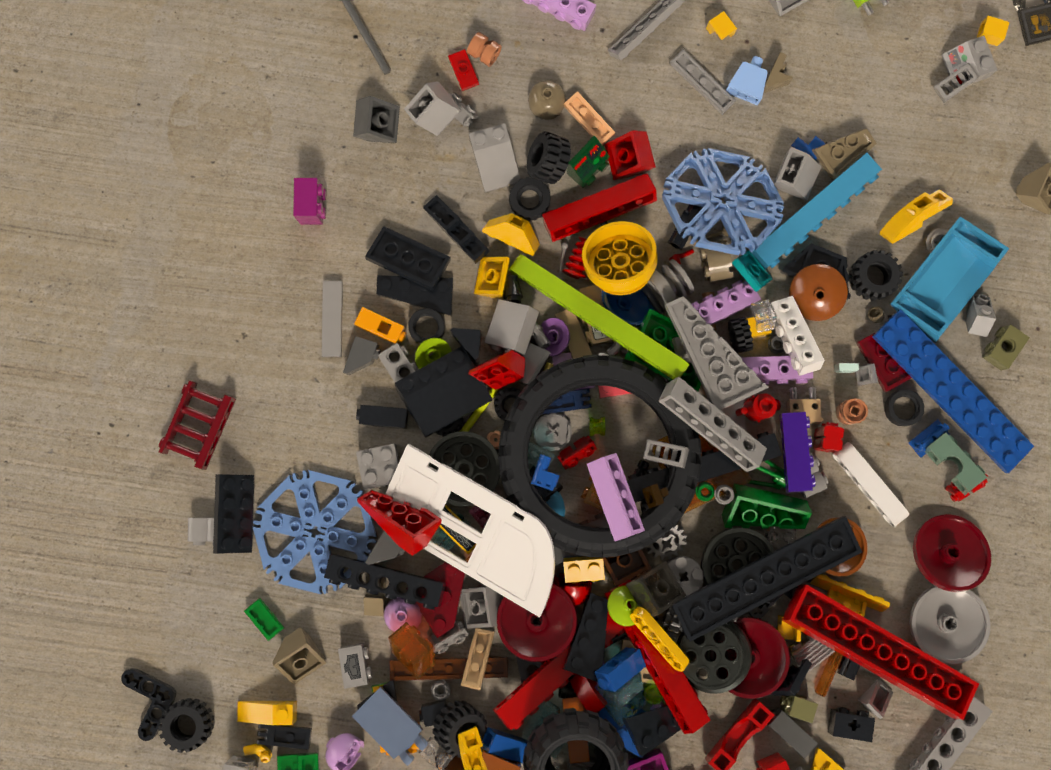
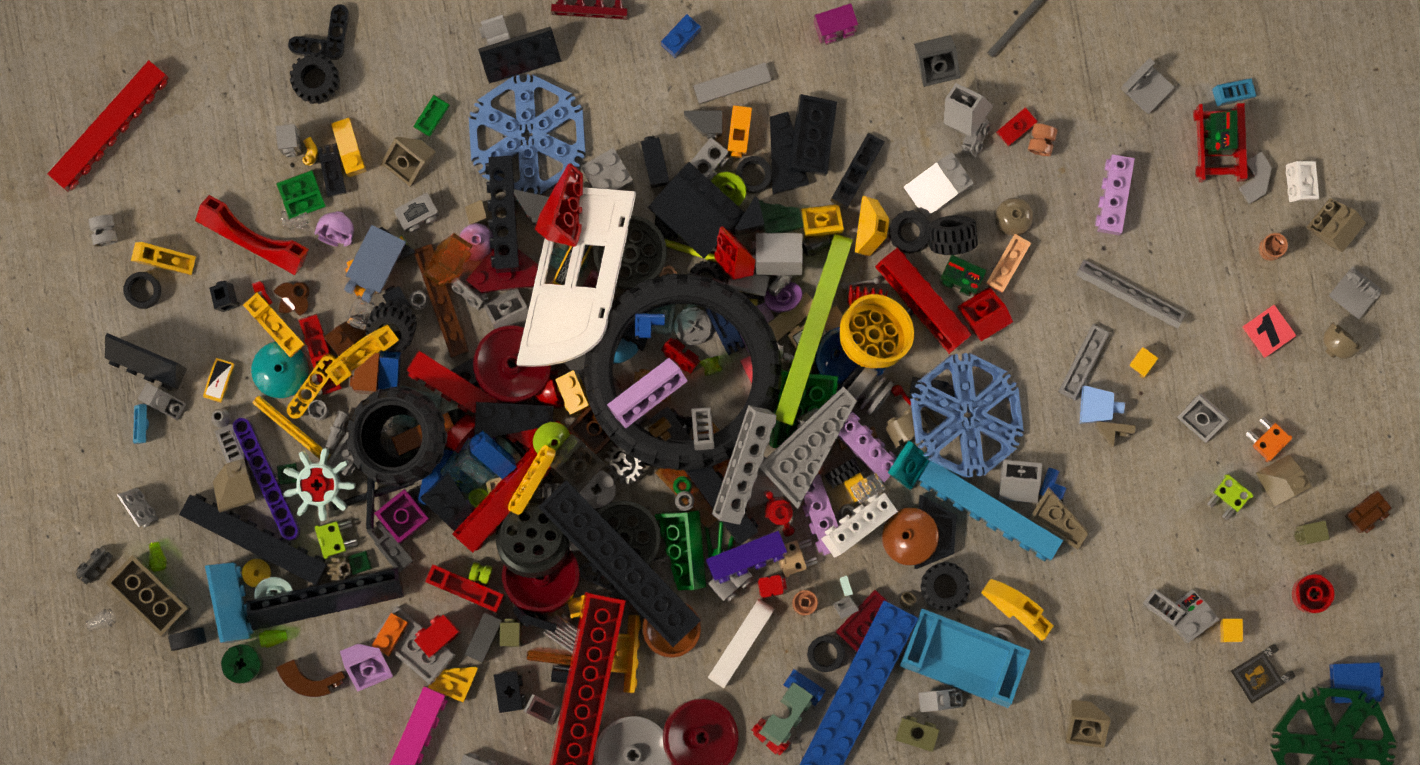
camera: 75 degrees right, 0 degrees up
(269, 352) = (680, 36): none -> blue brick
(477, 314) = (780, 218): none -> clear green wing
(477, 658) = (459, 323): tan tile -> none
(727, 715) = (485, 573): none -> lime wheel

